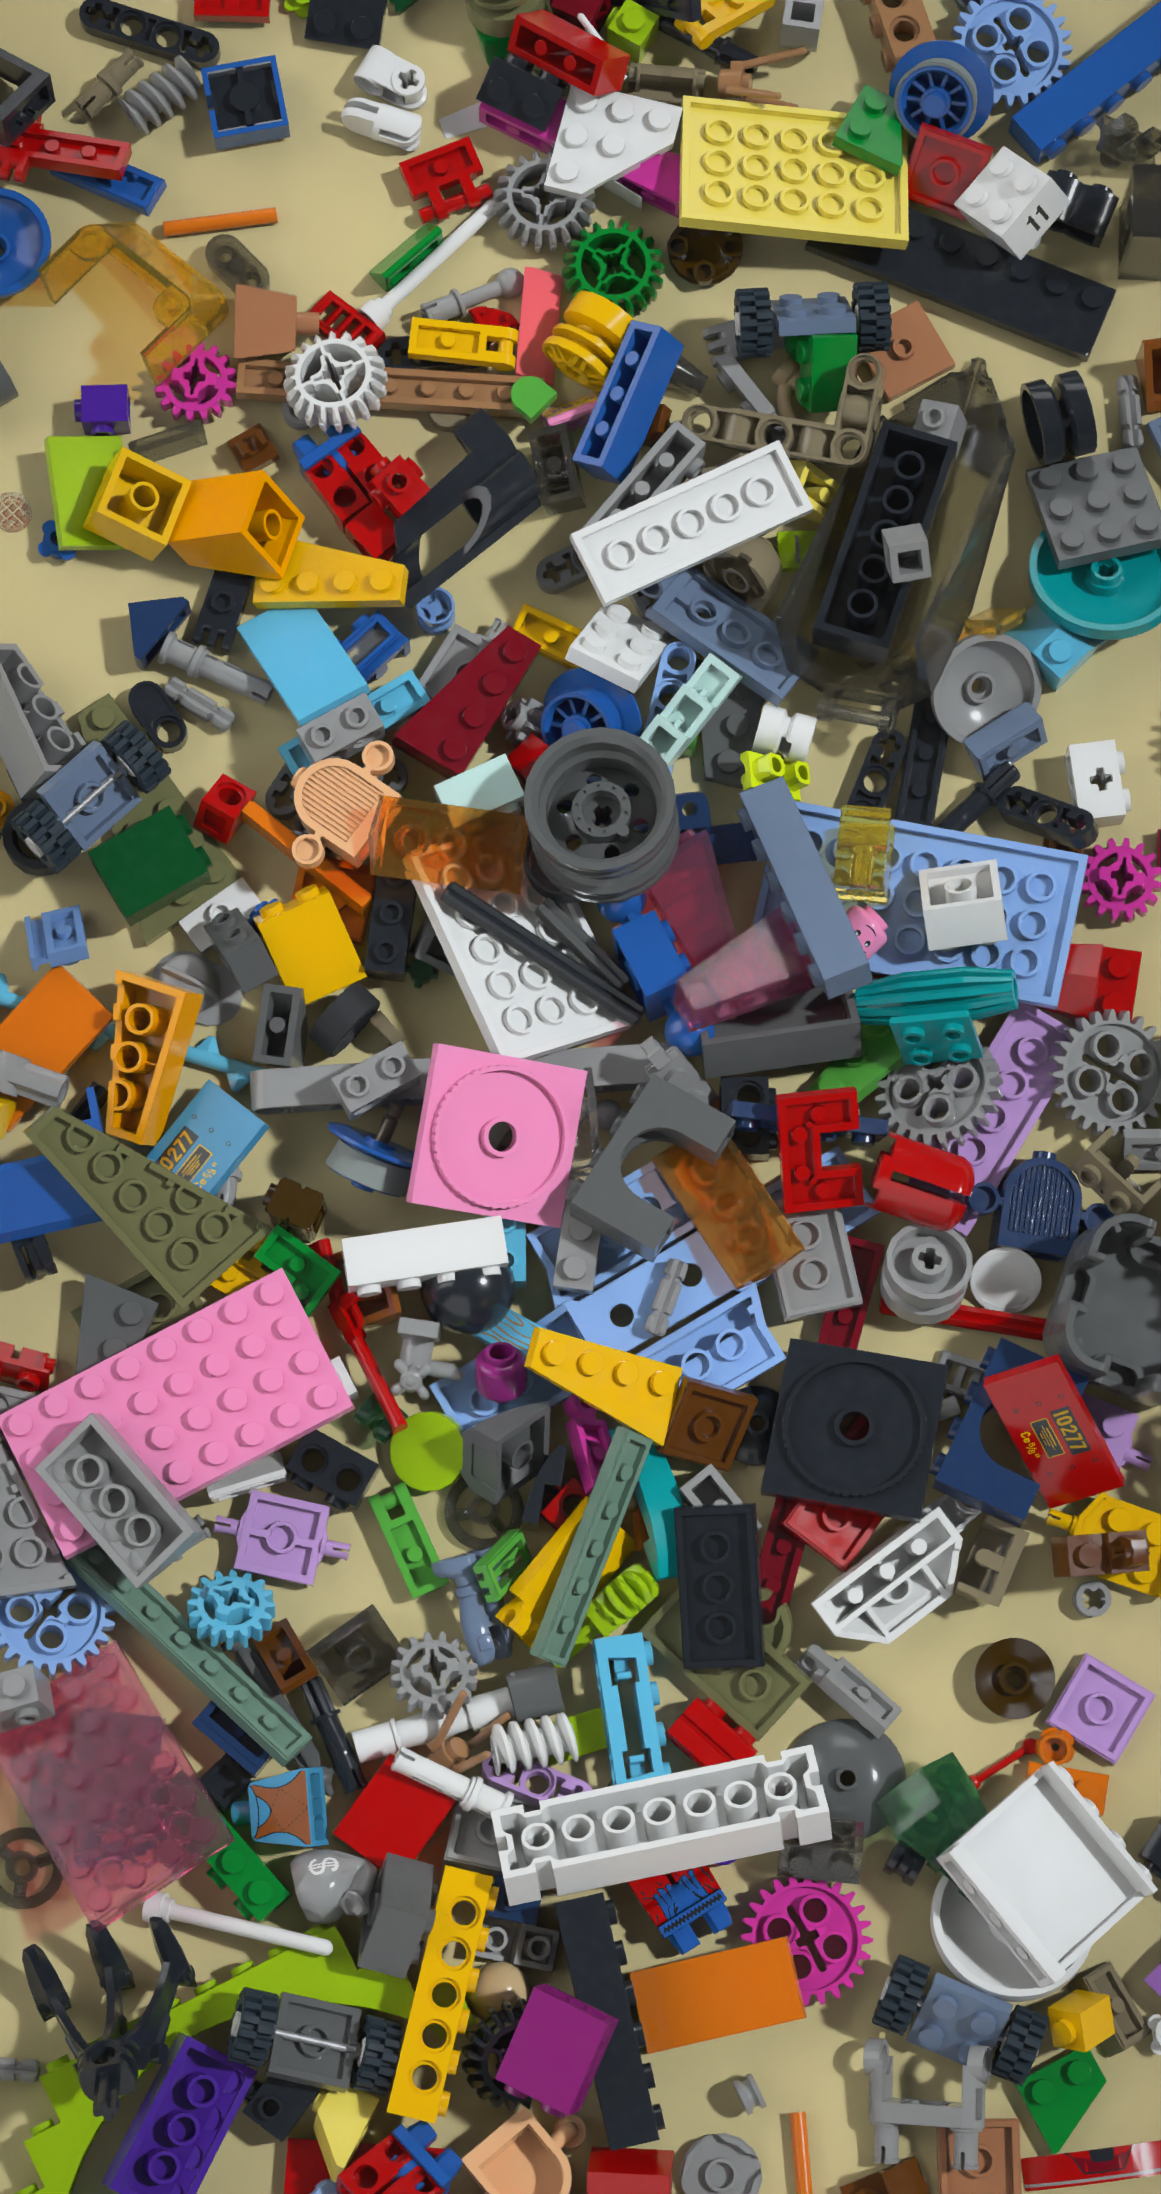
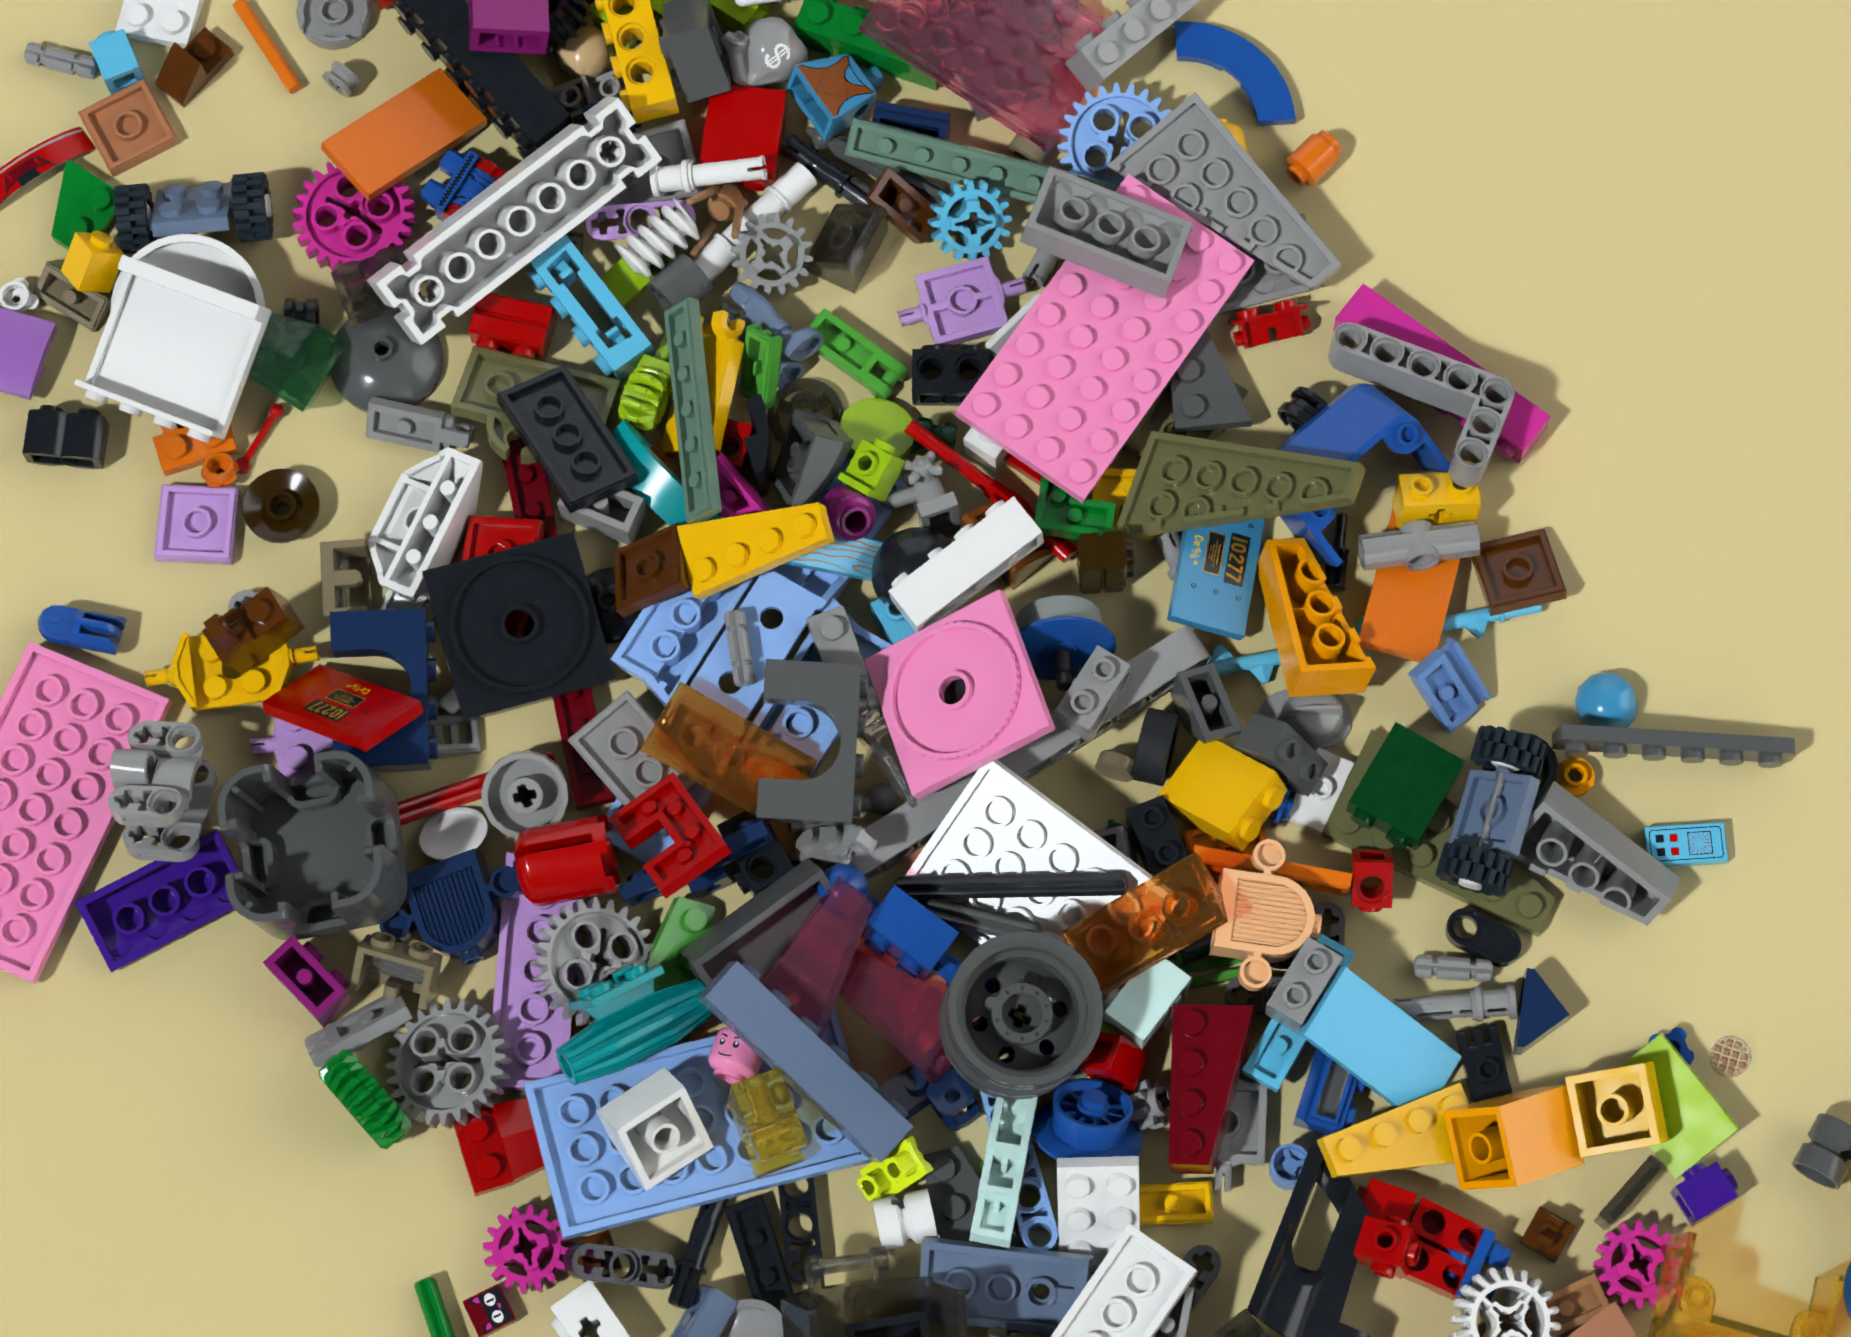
camera: 160 degrees right, 5 degrees down
(138, 1654) = (1026, 149): none -> dark tan tile
(225, 1782) = (901, 91): black tile -> none
(469, 1390) = (873, 469): none -> lime brick
(889, 2113) = (211, 125): light grey connector -> none

